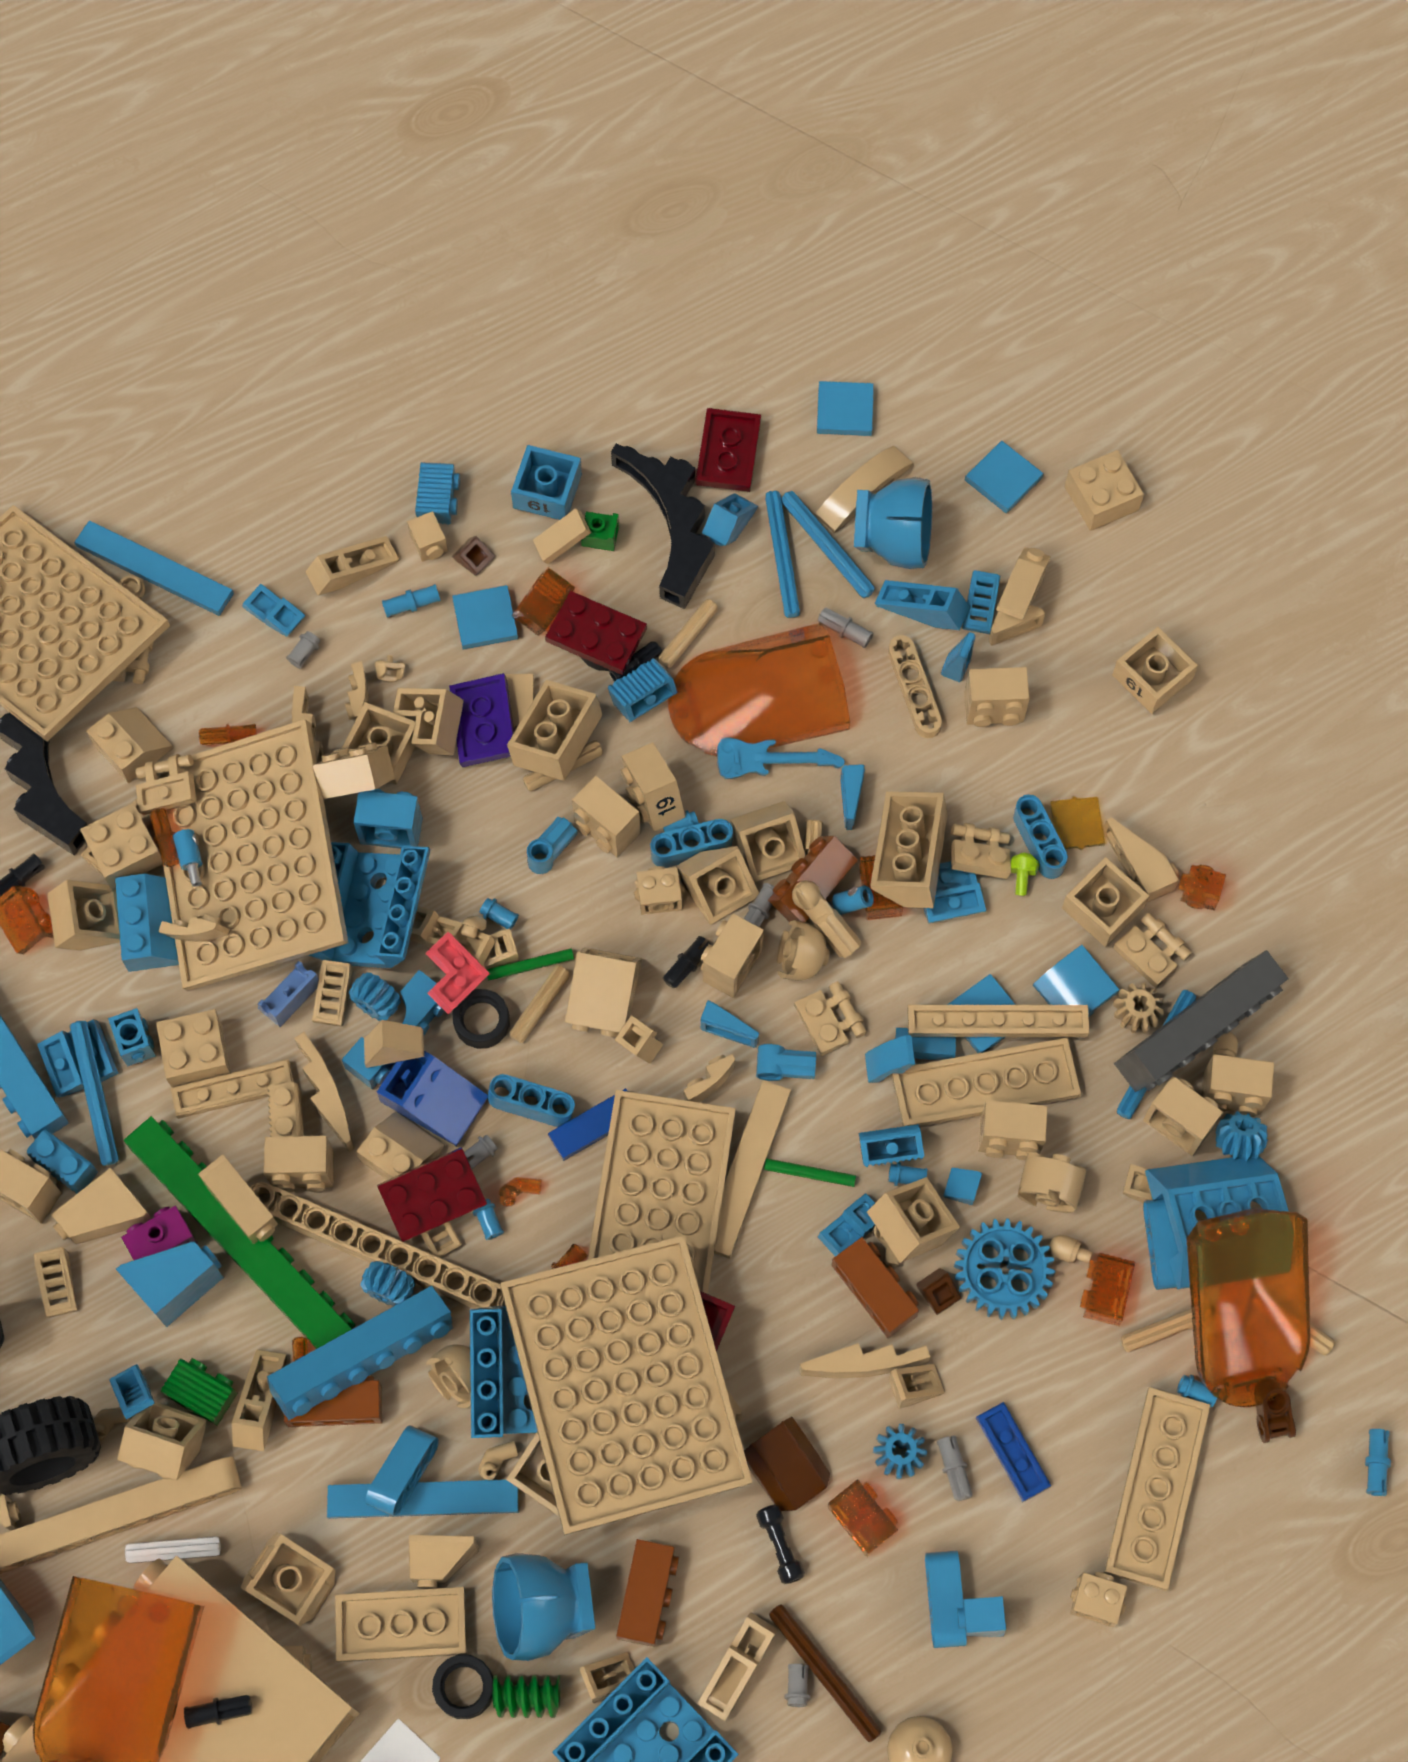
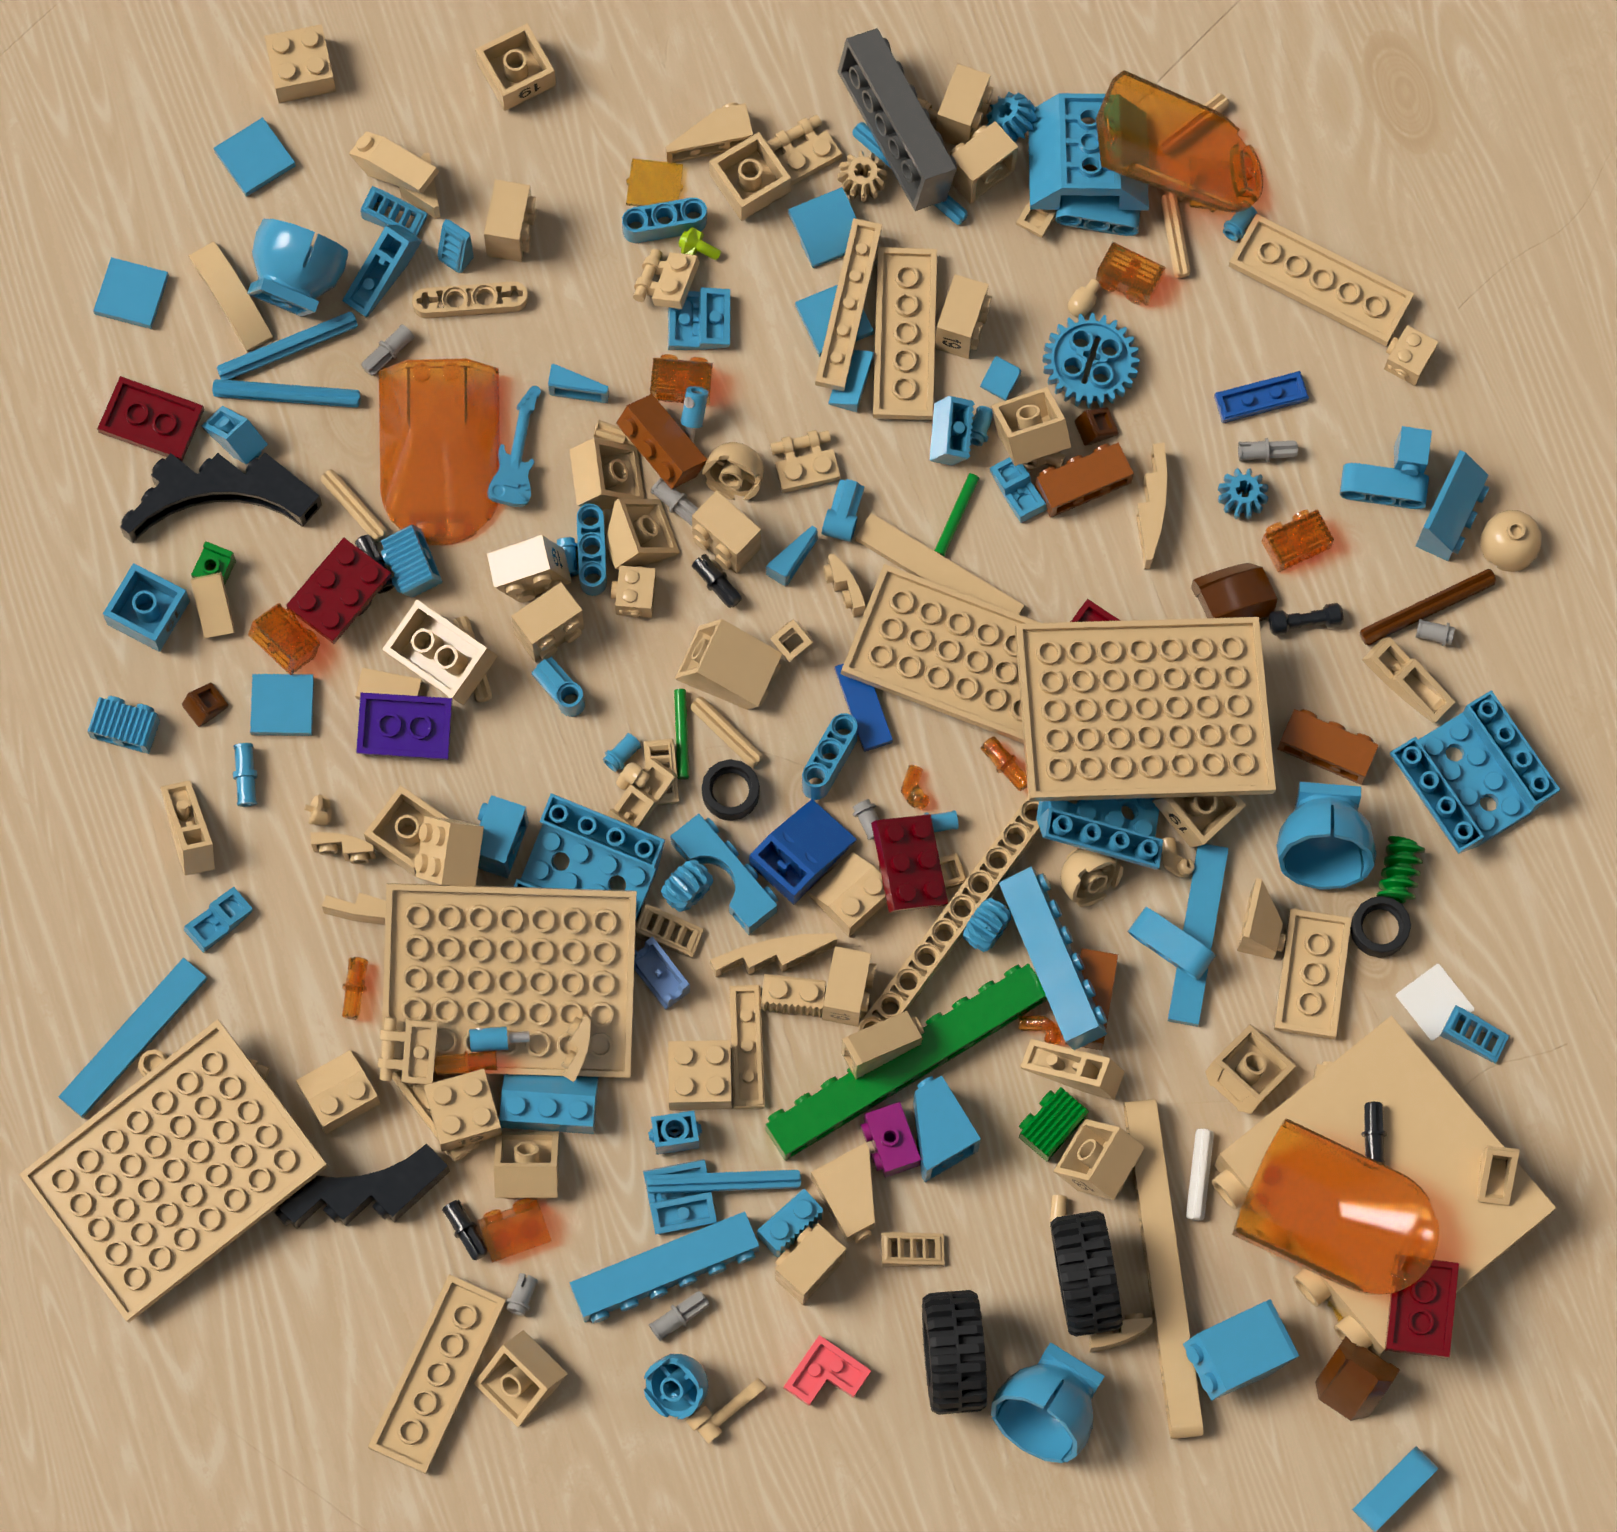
camera: 80 degrees left, 5 degrees up
(132, 1391) = (1028, 1191): dark azure slope -> none
(304, 648) = (273, 895): light grey pin -> none
(393, 1043) = (750, 870): tan slope -> none
(427, 536) = (175, 743): tan brick -> none
(435, 717) = (392, 766): tan brick -> none
(461, 972) = (688, 793): coral plate -> none
(605, 1675) = (1397, 797): tan slope -> none
(825, 918) = (709, 436): tan piece -> none
(889, 1058) = (865, 411): dark azure slope -> none
(910, 848) = (654, 338): tan slope -> none
(915, 1384) = (1183, 467): tan slope -> none
(936, 1677) = (1454, 508): none -> dark azure slope
(1051, 1182) = (1022, 294): tan brick -> none
(1201, 887) = (755, 85): clear orange brick -> none
(1273, 1416) = (1273, 161): reddish brown piece -> none
(1378, 1462) = (1335, 87): dark azure pin -> none

